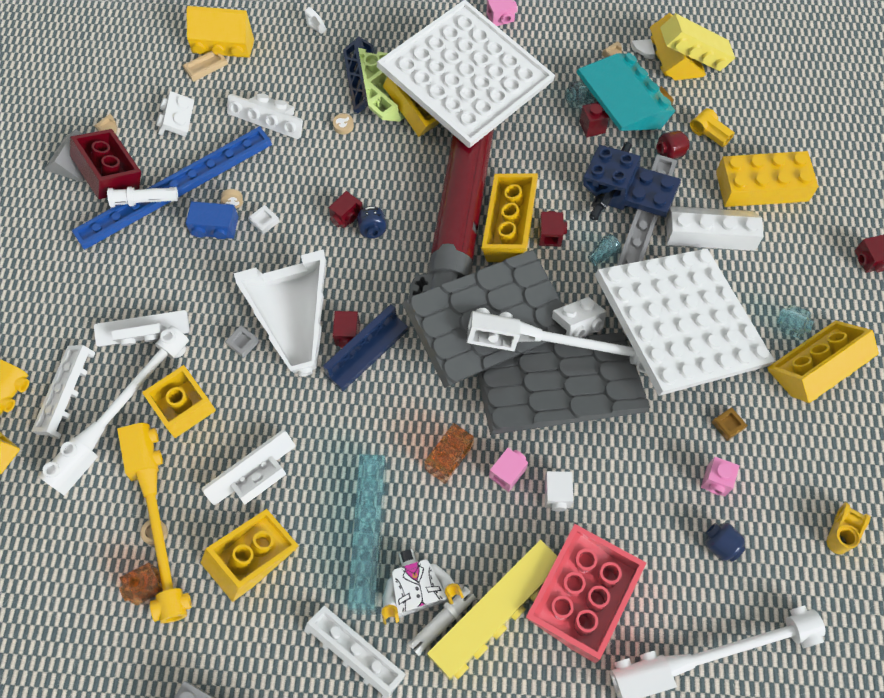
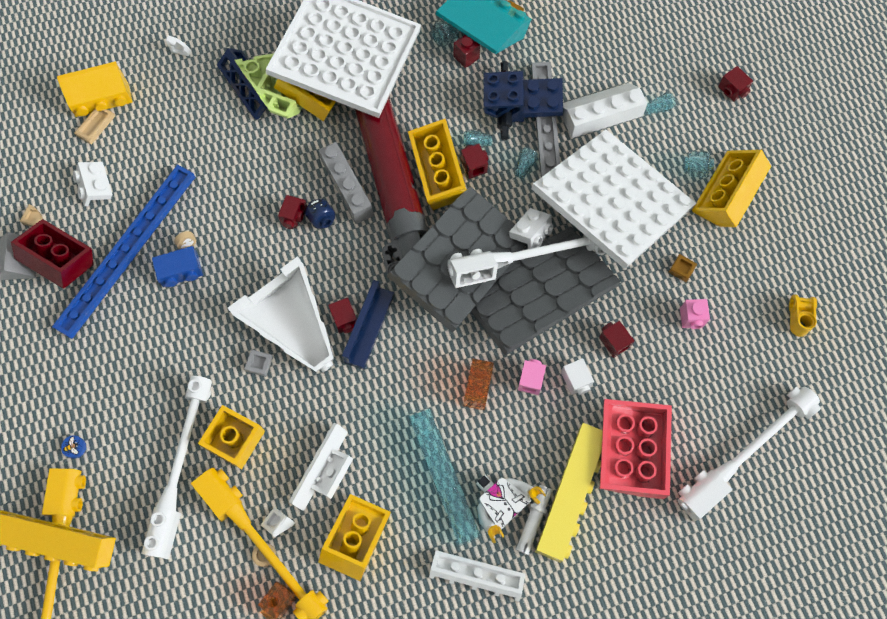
camera: 25 degrees left, 5 degrees up
(34, 349) = (73, 447): none -> tile
(61, 391) = (119, 471): white hinge -> none
(131, 196) = (94, 274): white pin -> none
(139, 328) = (162, 388): white bracket -> none
(182, 505) = (277, 522): none -> white slope
(263, 219) = (222, 247): white tile -> none
(266, 113) = (176, 149): white bracket -> none
(343, 124) = (250, 133): tan tile -> none
(411, 202) = (346, 183): none -> light grey brick
(569, 210) = (475, 137): none -> clear light blue cone
(619, 467) = (616, 338): none -> dark red brick
(673, 144) = (540, 49): dark red head -> none
(708, 124) = (561, 20): yellow piece -> none
(725, 541) = (719, 363): dark blue head -> none
(766, 178) = (627, 51): yellow brick -> none
(780, 245) = (661, 104): none -> clear light blue cone

